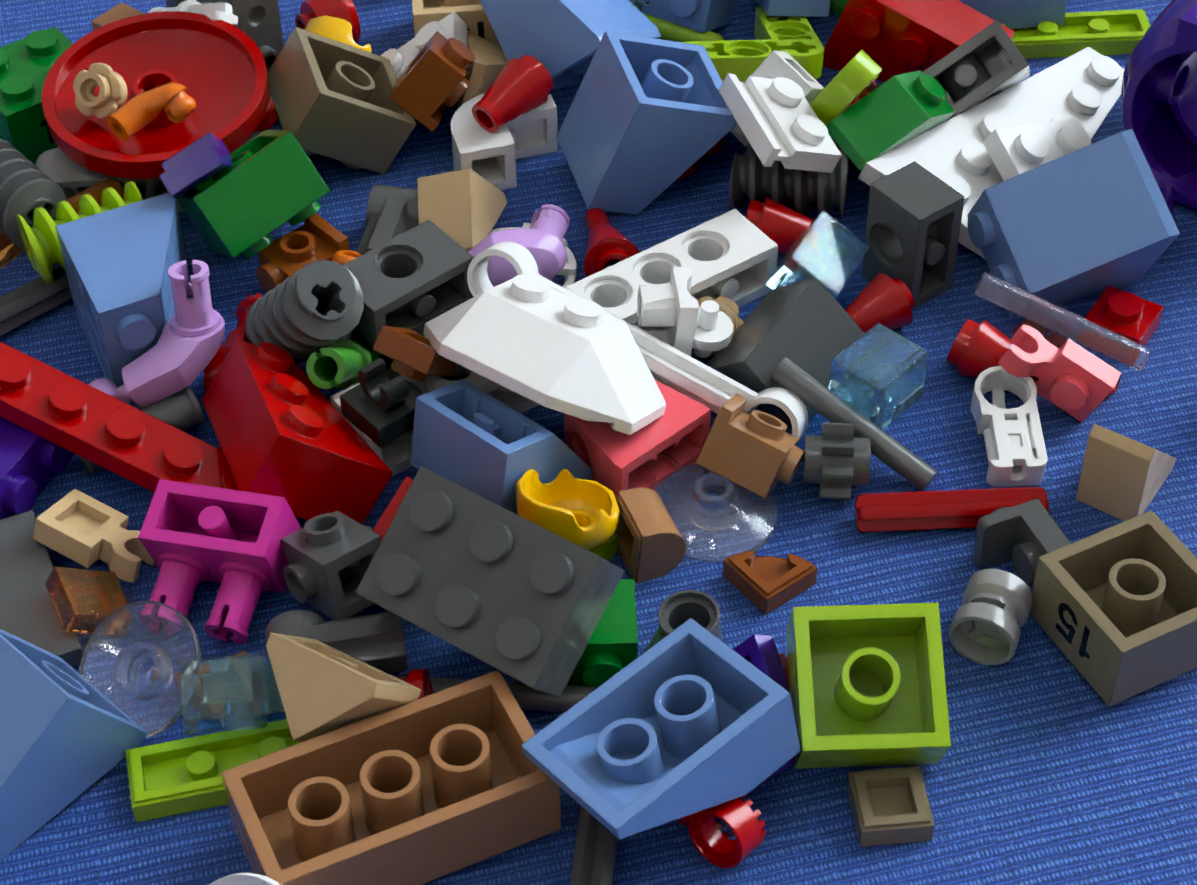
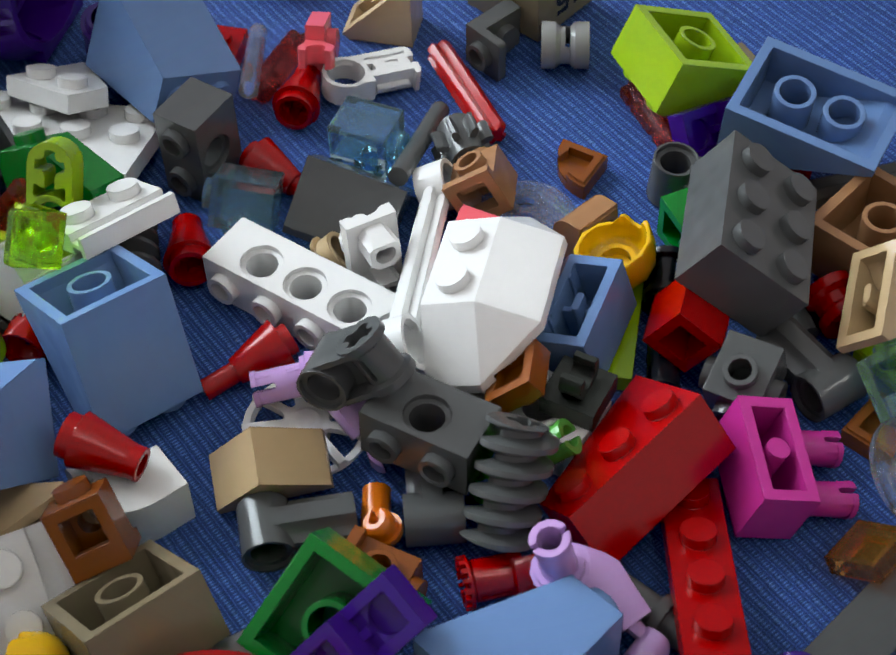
camera: 110 degrees left, 5 degrees up
(92, 531) = (799, 589): tan plate -> none
(474, 216) = (354, 367): none -> dark grey piece
(744, 52) = (34, 237): none -> clear neon green bracket

